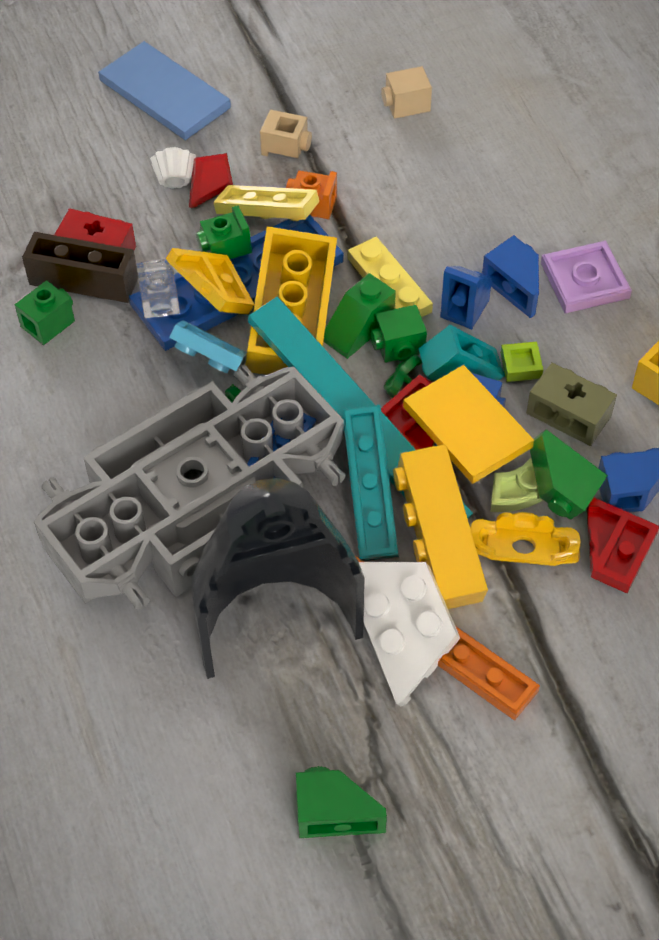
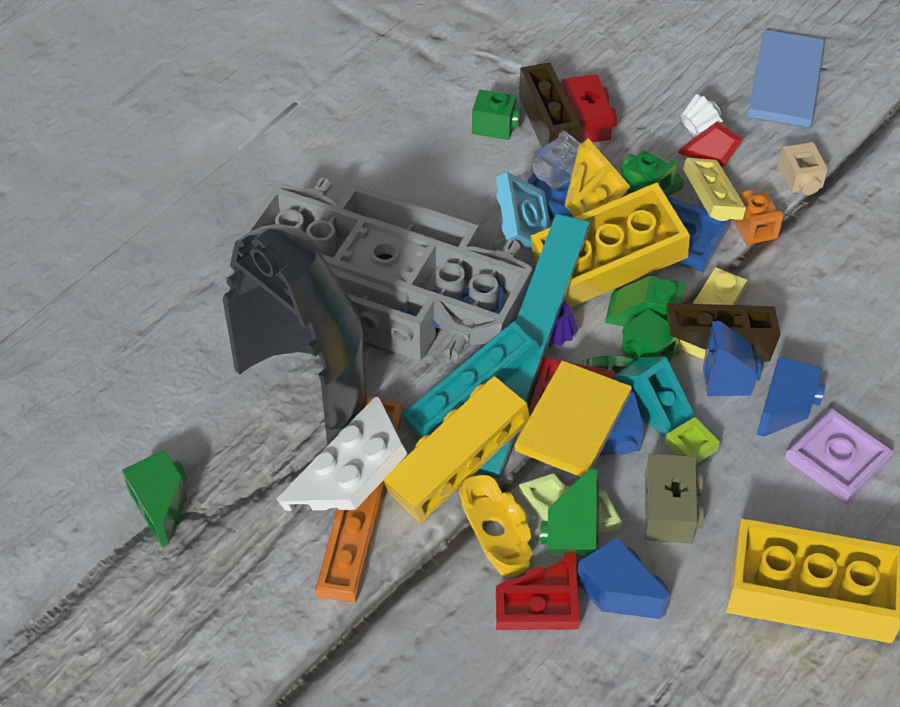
camera: 60 degrees right, 5 degrees down
(424, 281) = (753, 323): none -> dark brown slope

